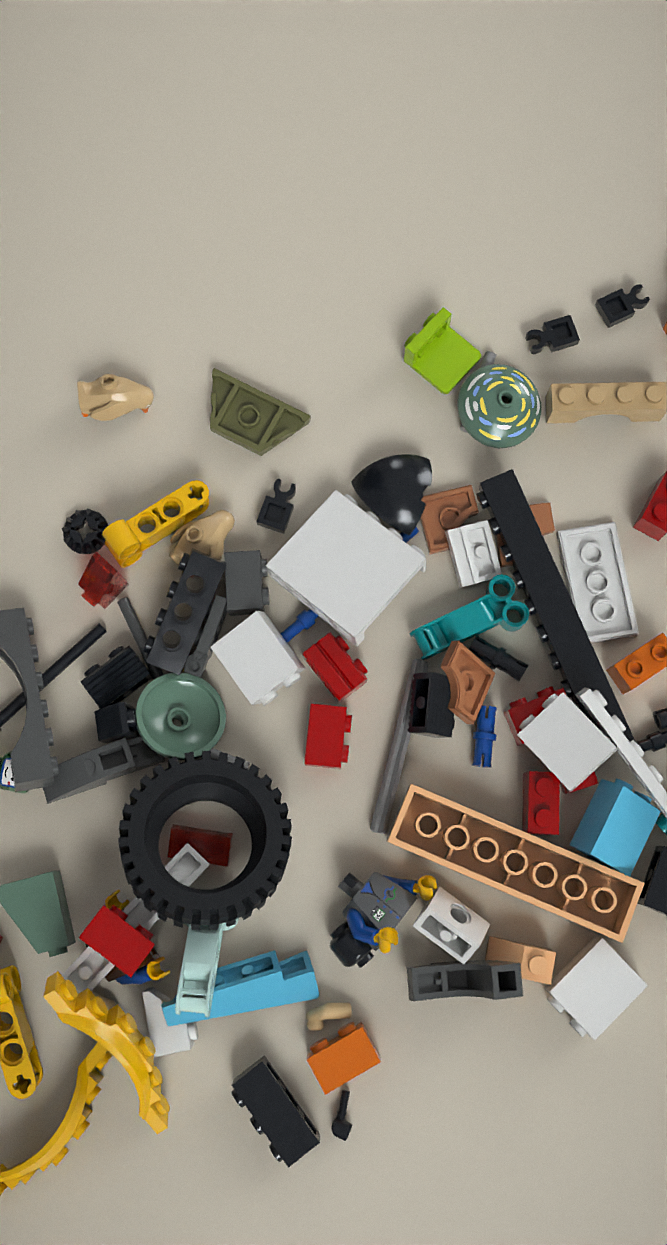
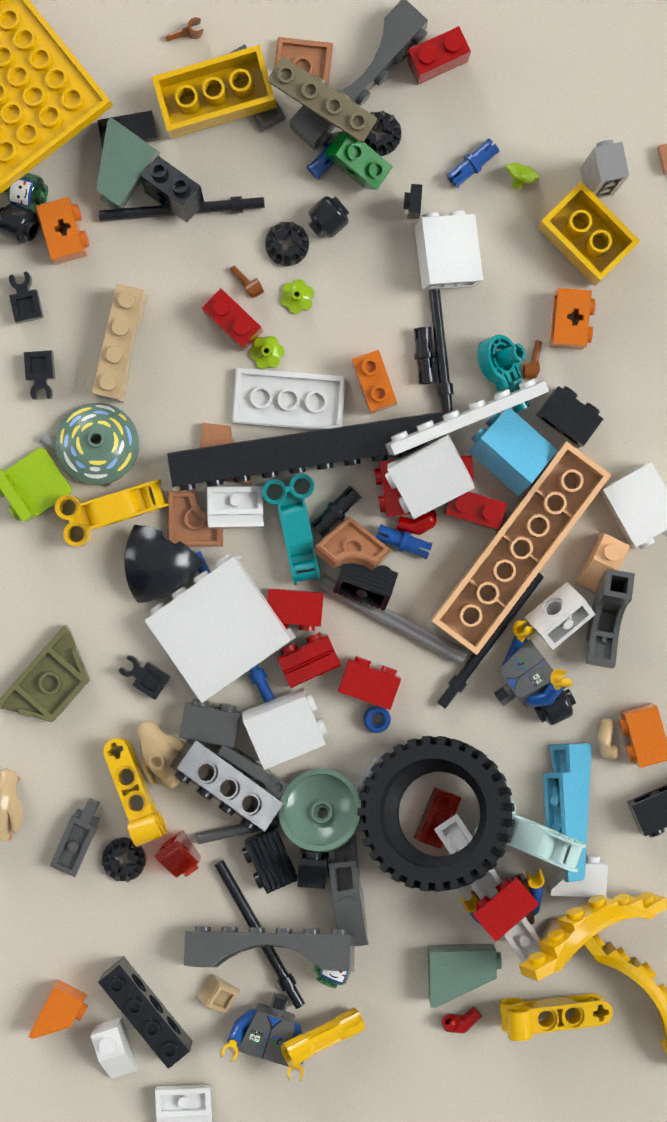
camera: 80 degrees left, 10 degrees up
(97, 479) = (76, 839): none -> dark grey hinge
(281, 750) = (380, 727): none -> blue plate
(350, 832) = (457, 683): none -> black bar
(387, 642) = (297, 607): none -> red brick
(436, 431) = (109, 509): none -> yellow piece
(505, 749) = (420, 525): none -> red arm
(634, 554) = (270, 359): none -> lime plant

